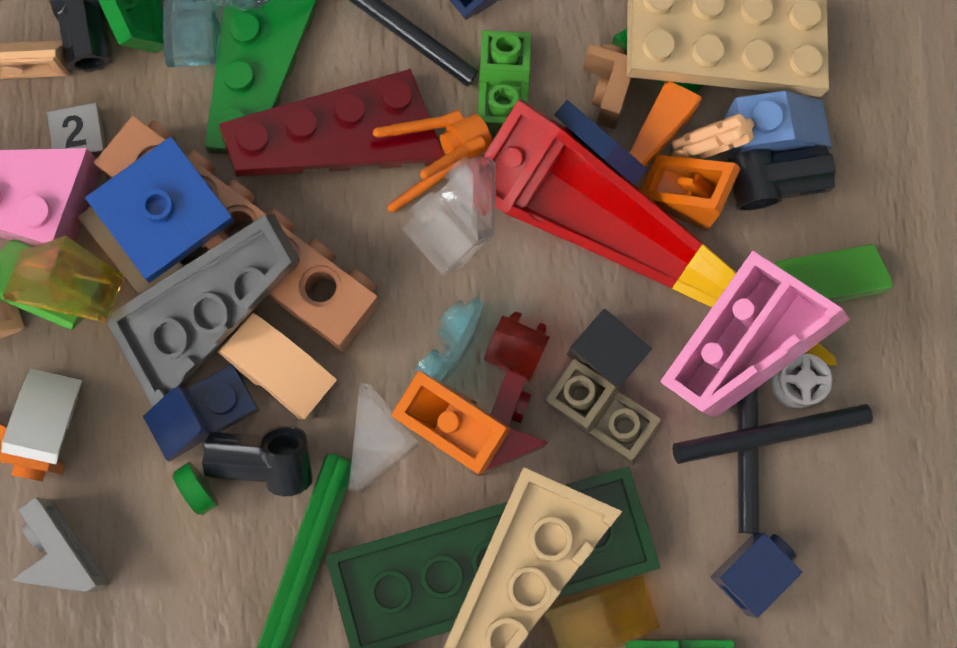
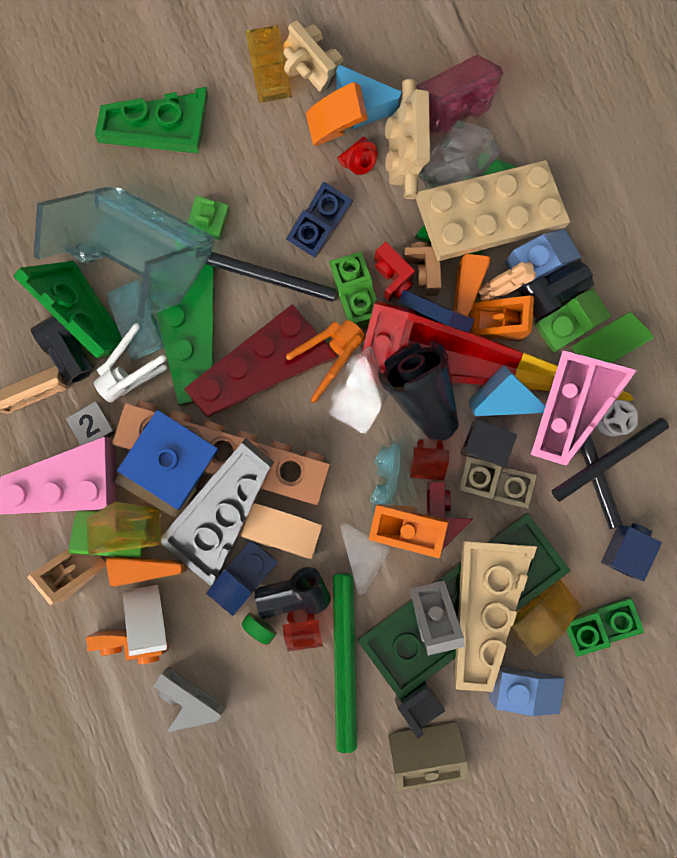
camera: 20 degrees left, 5 degrees up
(53, 345) = (135, 569): none -> orange slope
(135, 88) = (116, 381): none -> white plant
(252, 518) = (302, 634): none -> clear red tile
(444, 557) = (436, 618): none -> light grey slope
(543, 241) = (423, 388): none -> black cone
(564, 65) = (393, 266): none -> red bracket
(657, 293) = (505, 396): none -> dark azure slope
(792, 226) = (573, 320): none -> bright green slope

